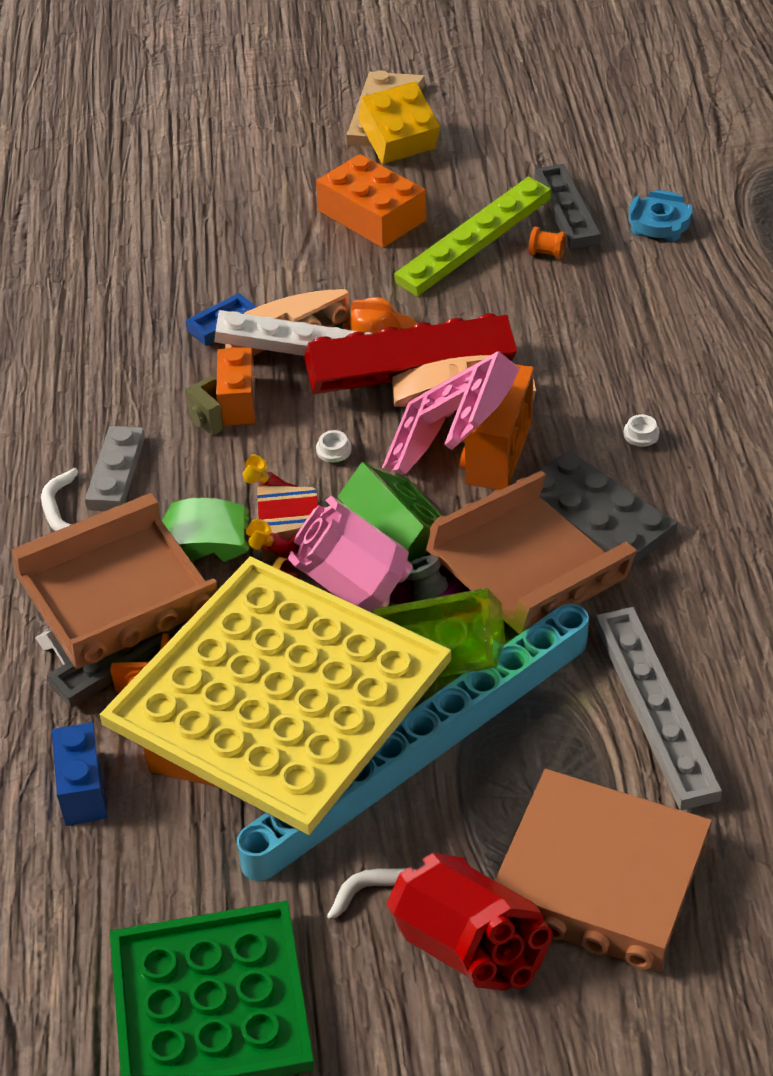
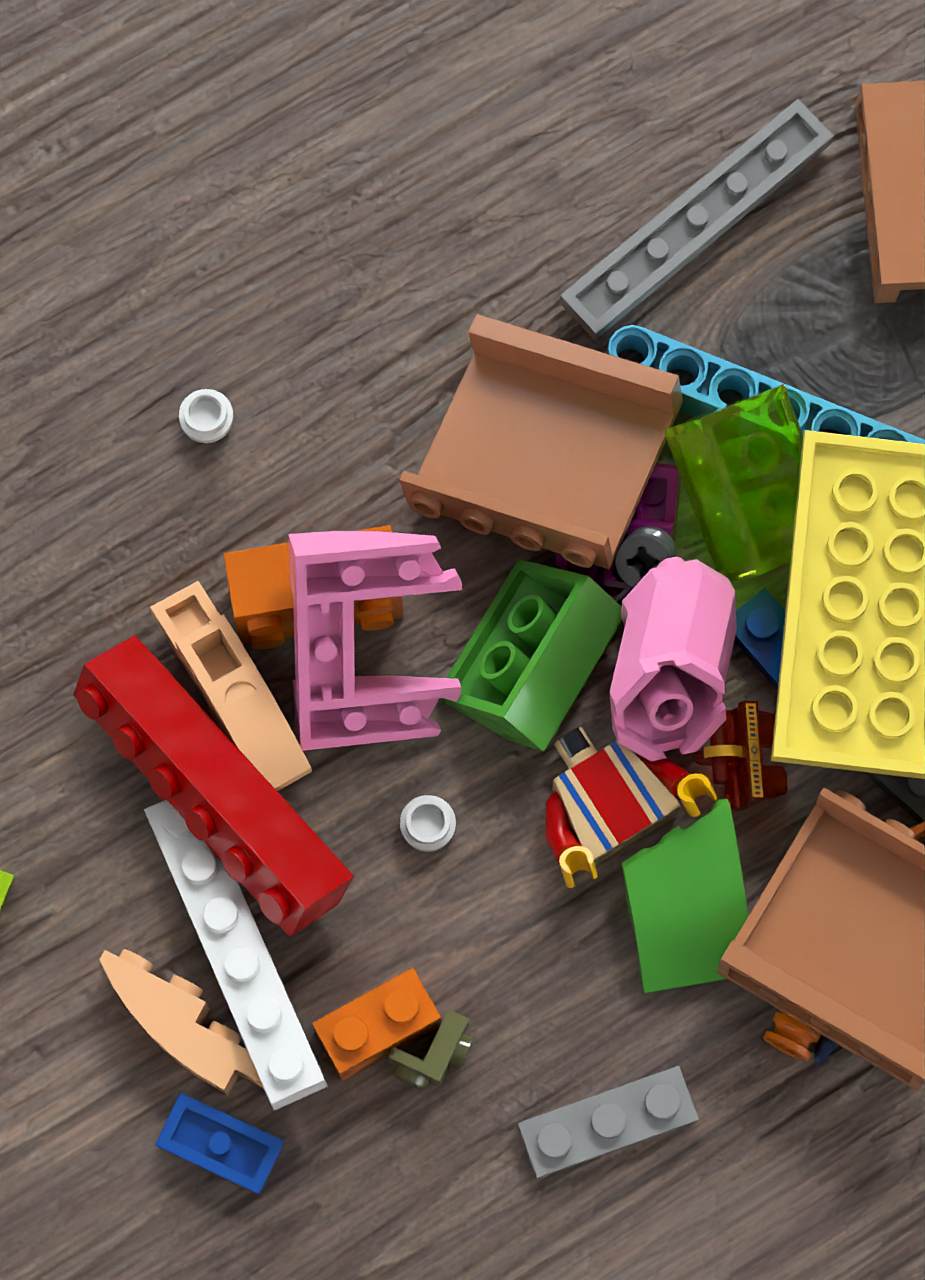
camera: 120 degrees left, 30 degrees up
(48, 498) = (731, 1164): white animal -> none
(374, 315) = (122, 891): orange piece -> none
(603, 507) = (382, 418): dark grey plate -> none

